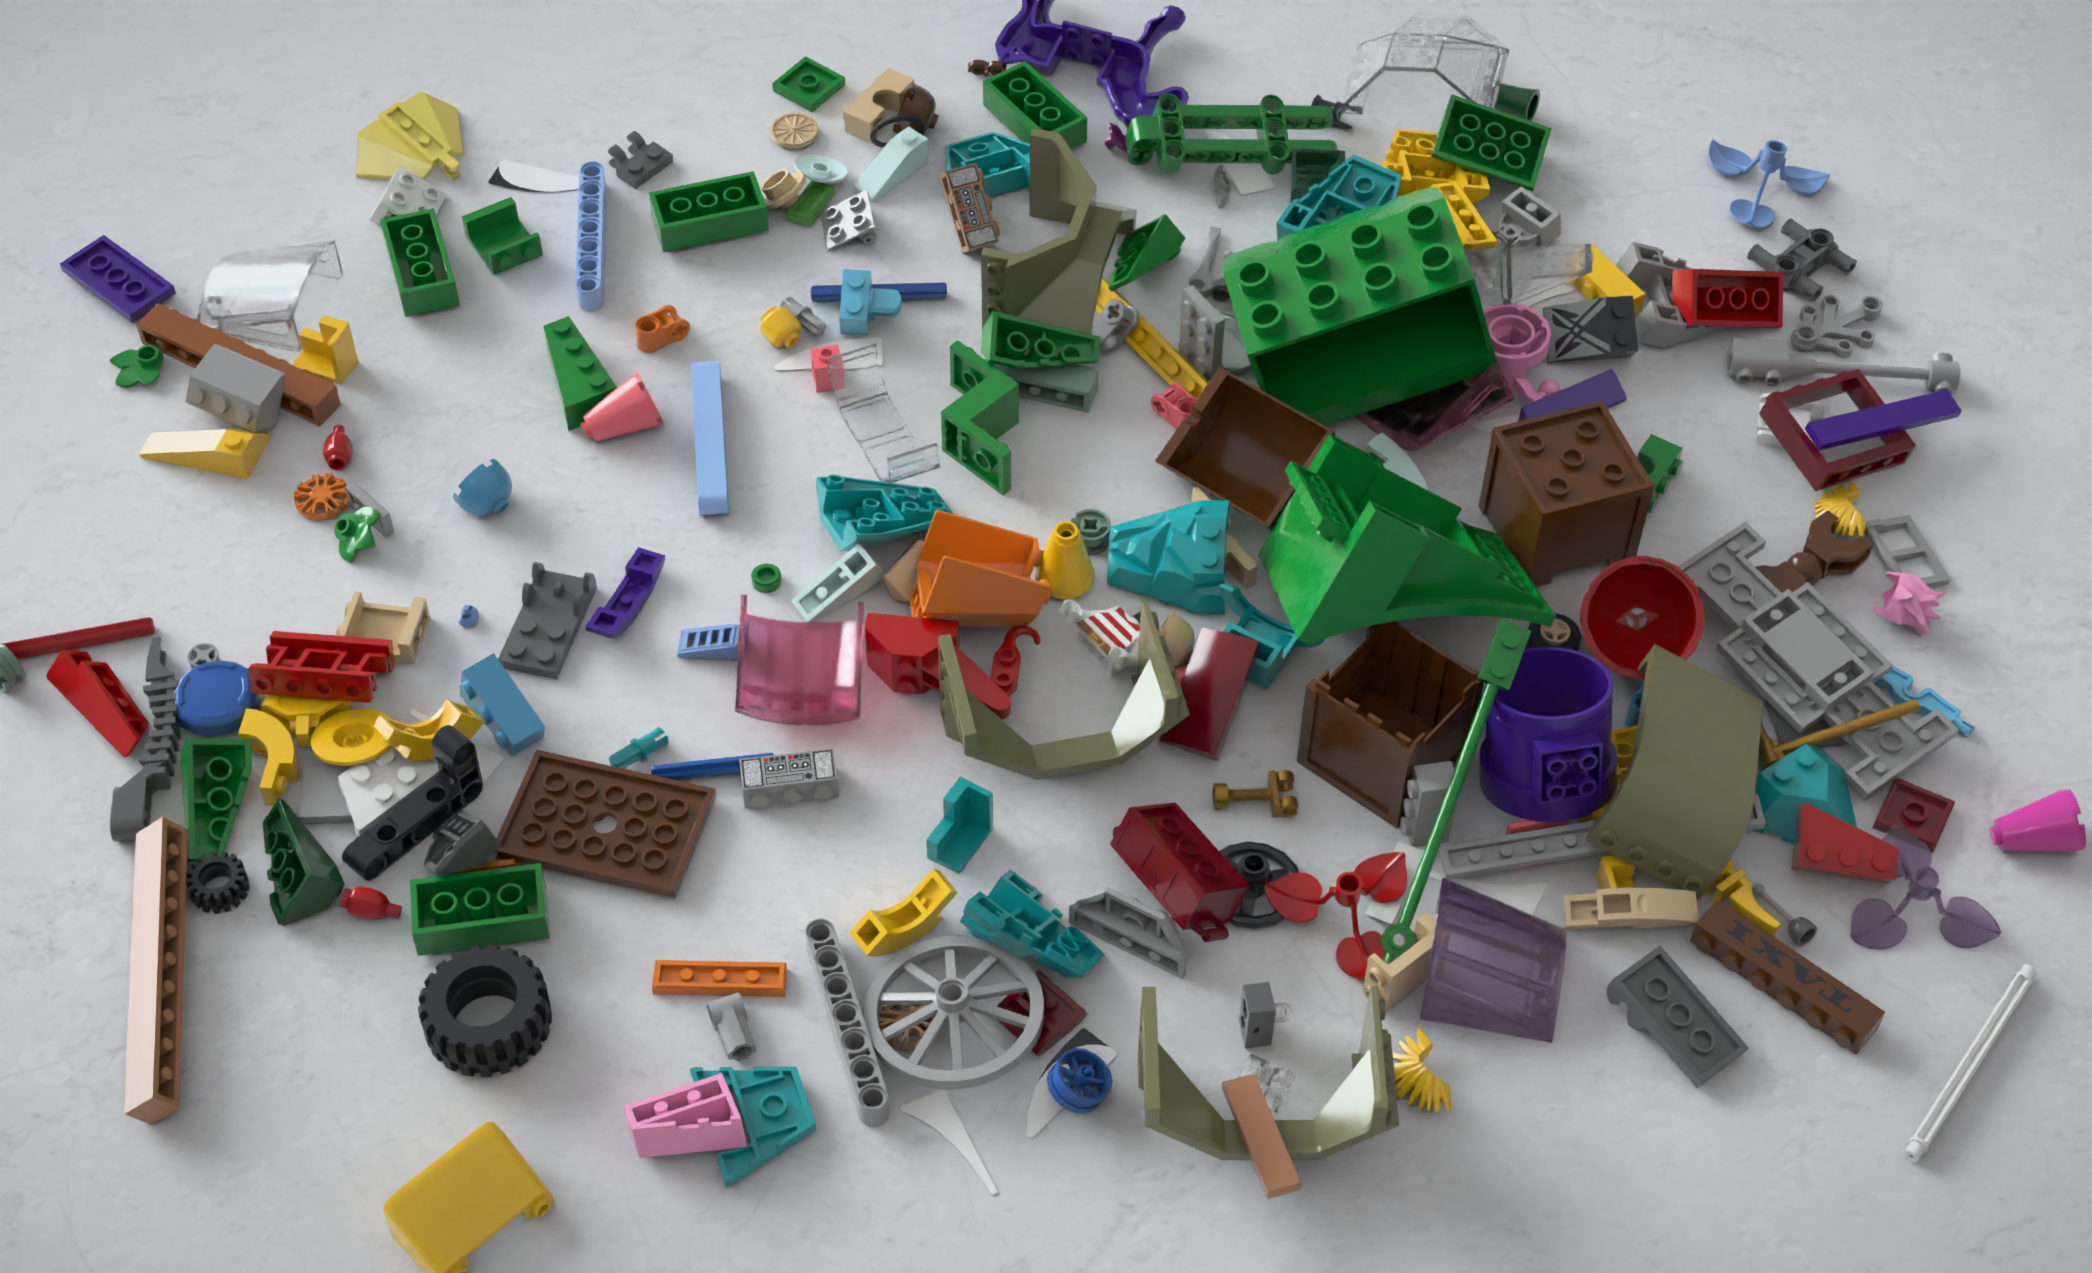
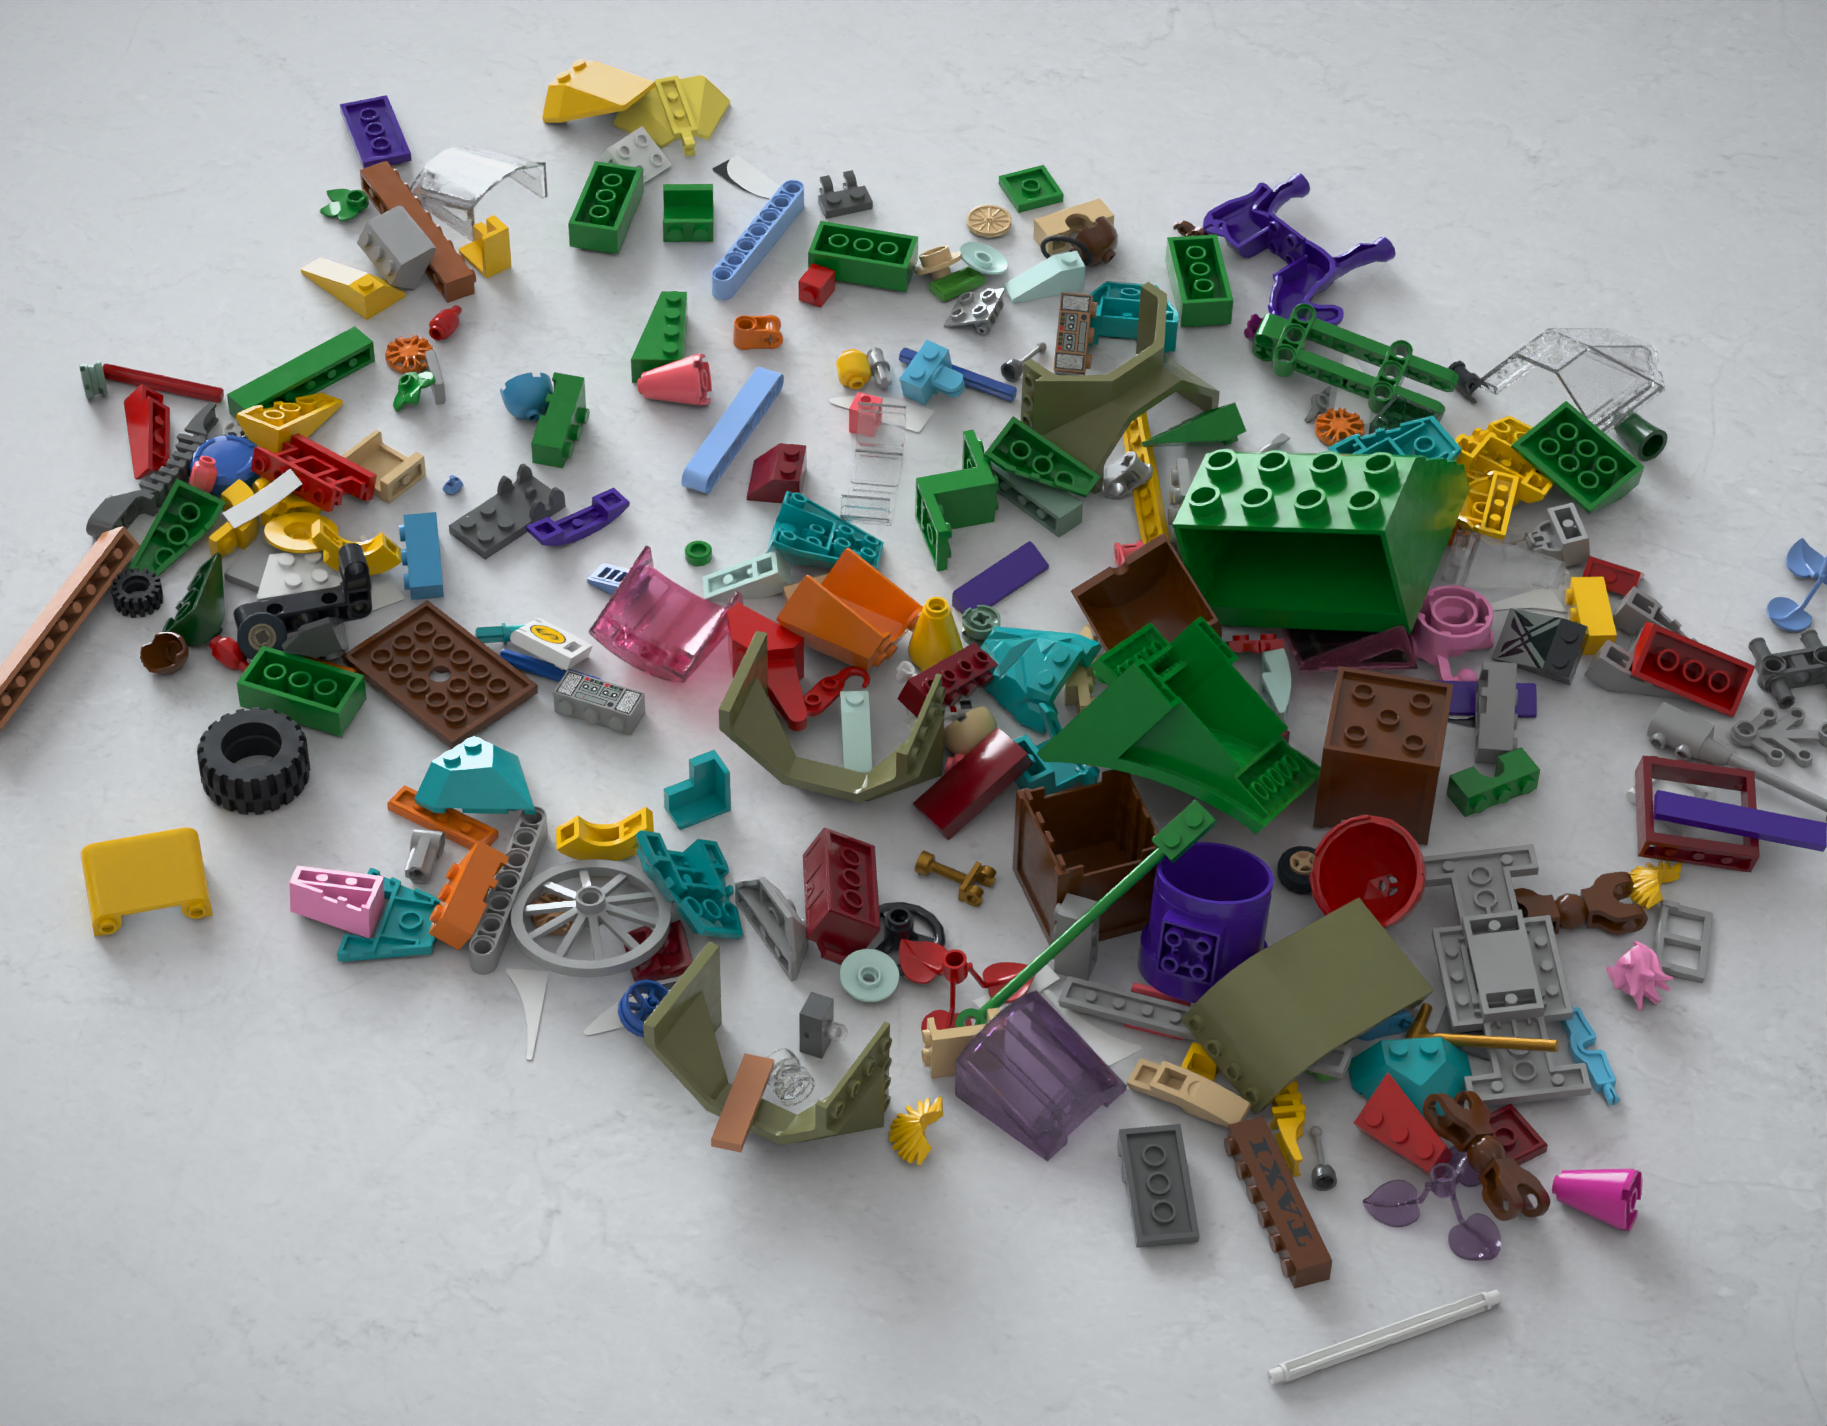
camera: 30 degrees right, 5 degrees down
(206, 720) = (204, 474): none -> coral plant
(227, 569) = (306, 373): none -> green brick
(245, 626) = (276, 424): none -> yellow wedge
(293, 719) = (263, 499): none -> white sticker
(300, 936) = (165, 653): none -> reddish brown hair
(323, 149) = (591, 91): none -> yellow wedge
(383, 868) = (258, 629): none -> black wheel
(536, 501) = (562, 423): none -> green wedge
(682, 258) = (816, 285): none -> red brick
(700, 738) = (551, 643): none -> white container
(736, 920) = (477, 779): none -> teal wedge
(787, 464) = (777, 472): none -> dark red slope
(816, 1050) = (466, 894): none -> orange wedge
(925, 263) = (1013, 368): none -> dark grey hinge
(1057, 693) = (856, 730): none -> light aqua slope
(1072, 478) = (1000, 578): none -> dark purple slope
(1120, 603) = (961, 677): none -> dark red brick
(1256, 201) = (1338, 427): none -> orange wheel
(1265, 927) = (869, 965): none -> light aqua dish
(1358, 433) = (1267, 642): none -> red plate
(1603, 383) = (1495, 711): none -> light grey wedge
(1604, 239) = (1616, 577): none -> red panel
(1931, 839) = (1500, 1176): none -> reddish brown piece

